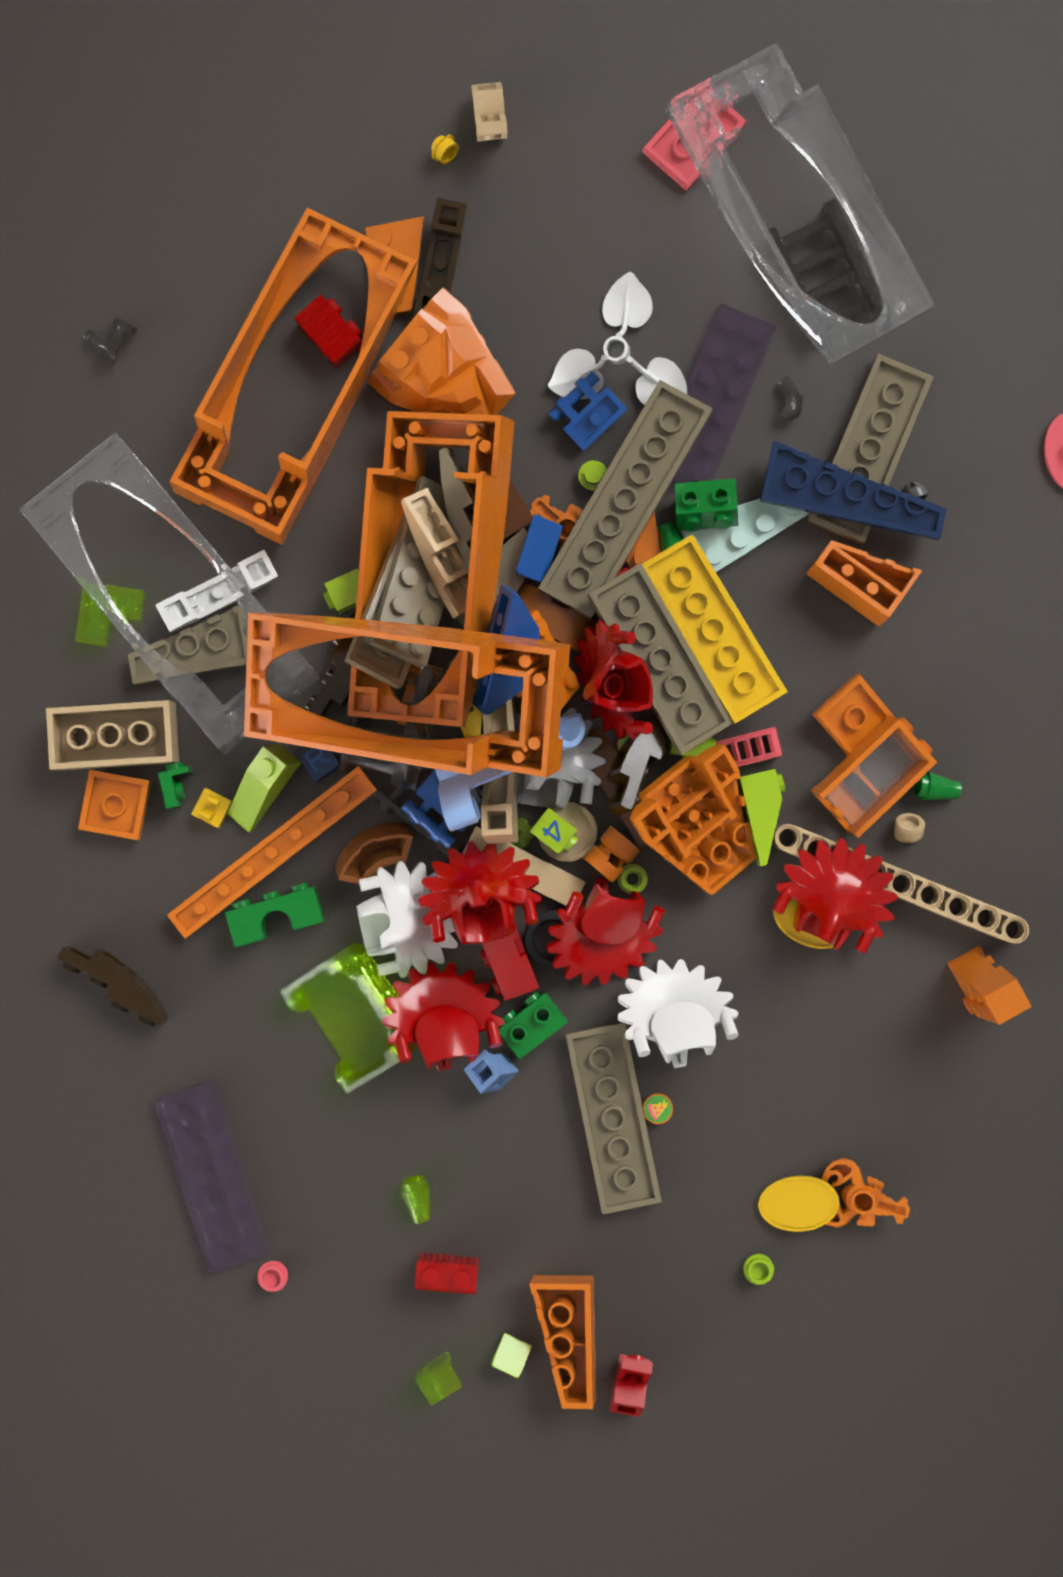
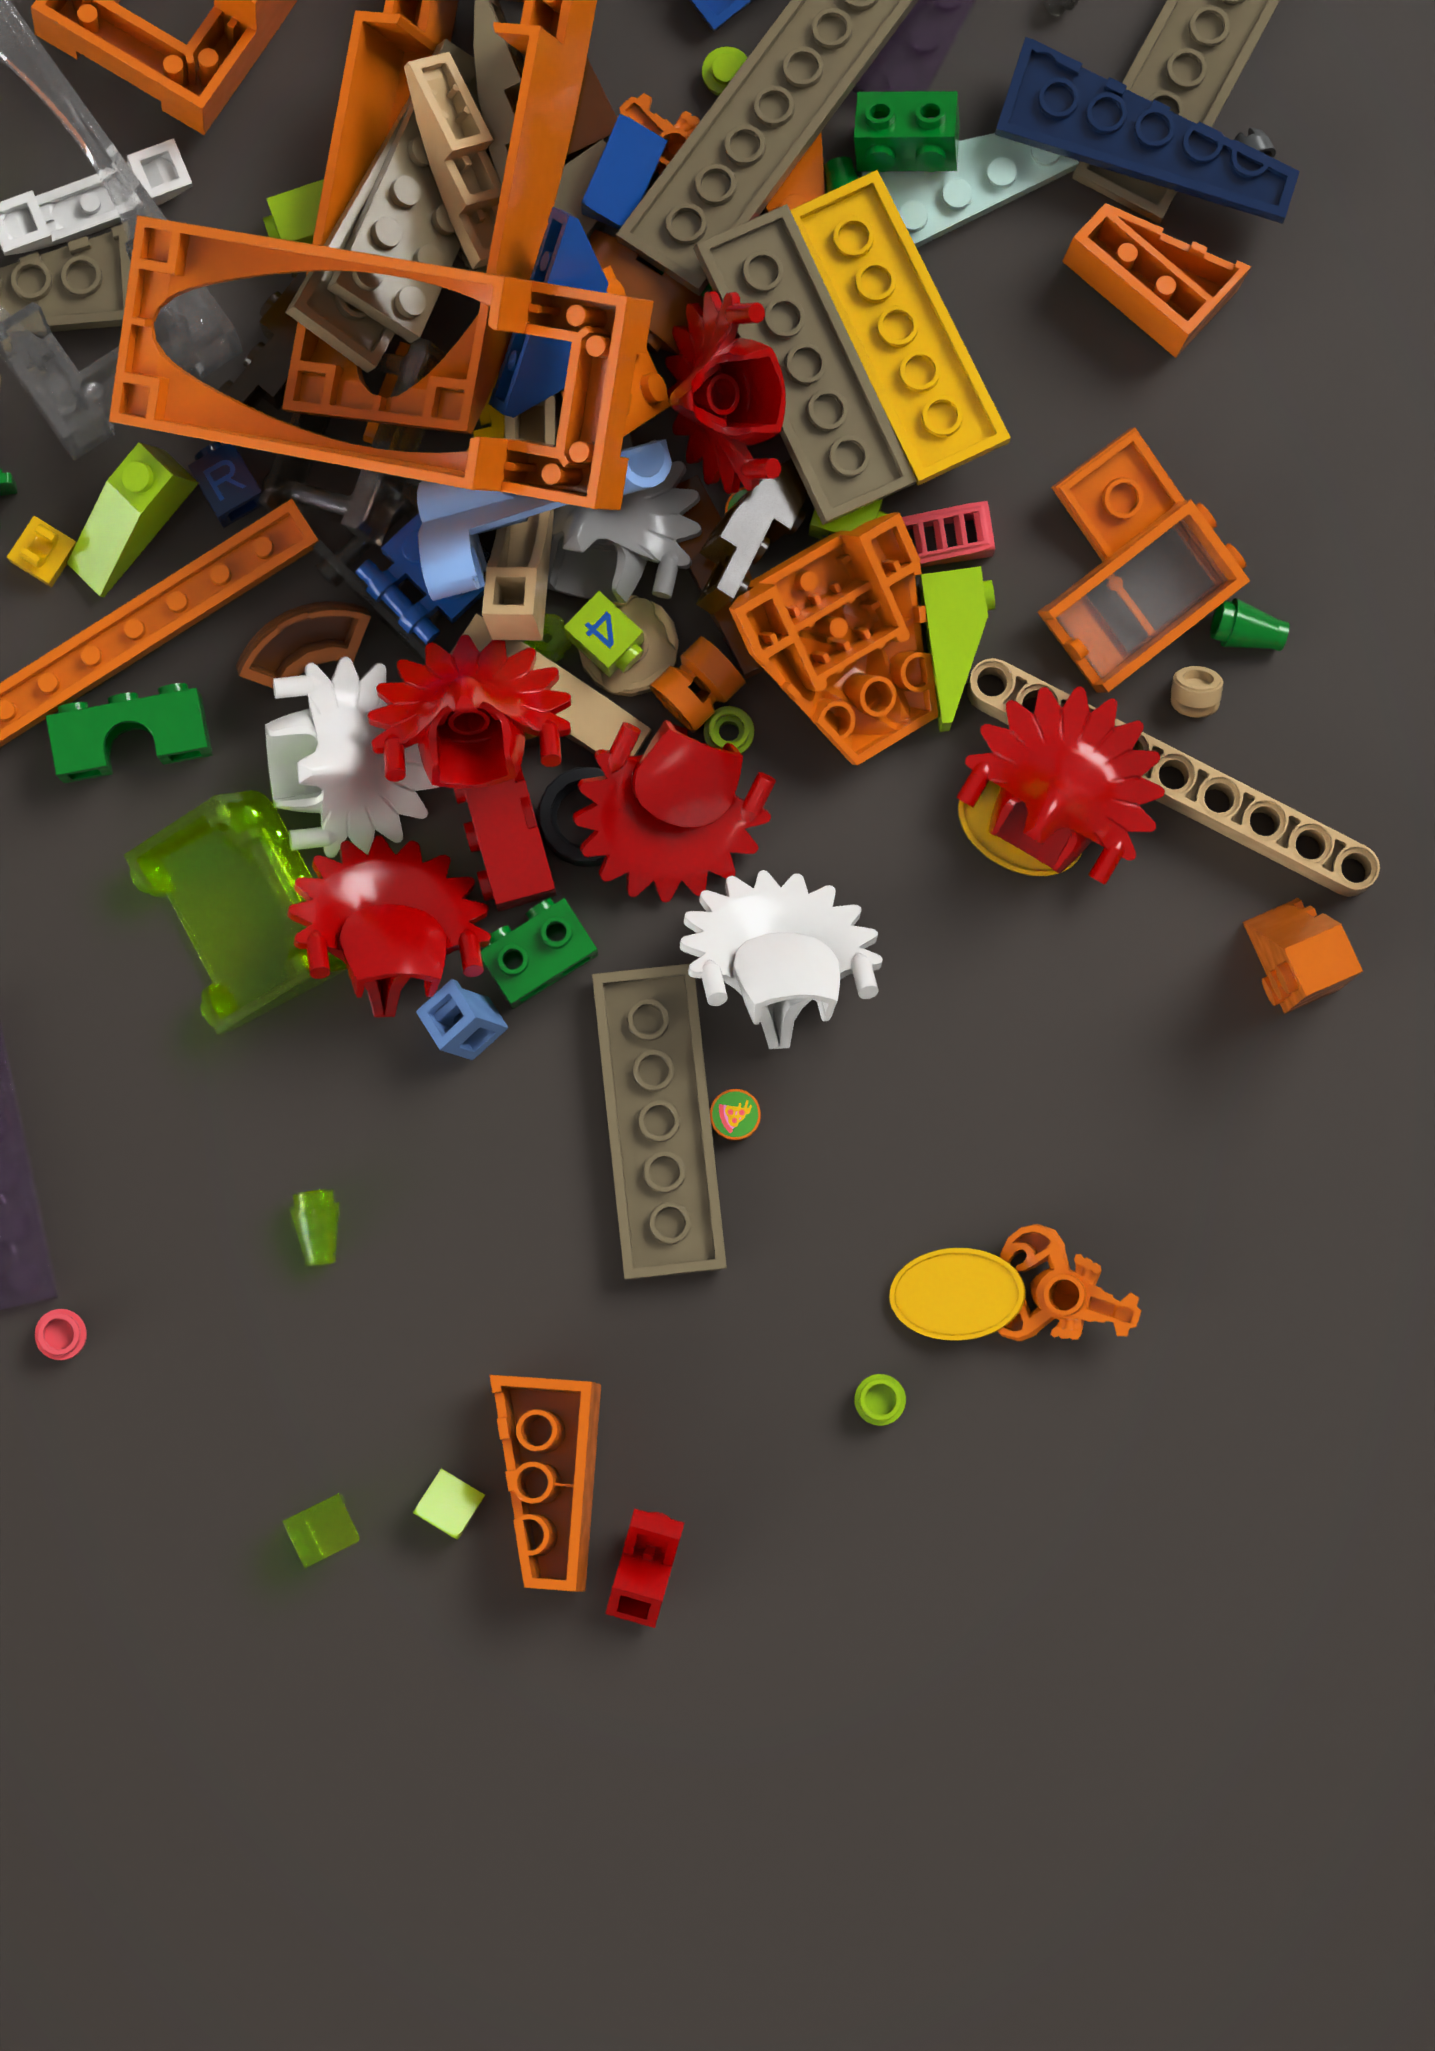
camera: 10 degrees right, 5 degrees down
(446, 1273) = (353, 1352): red brick -> none

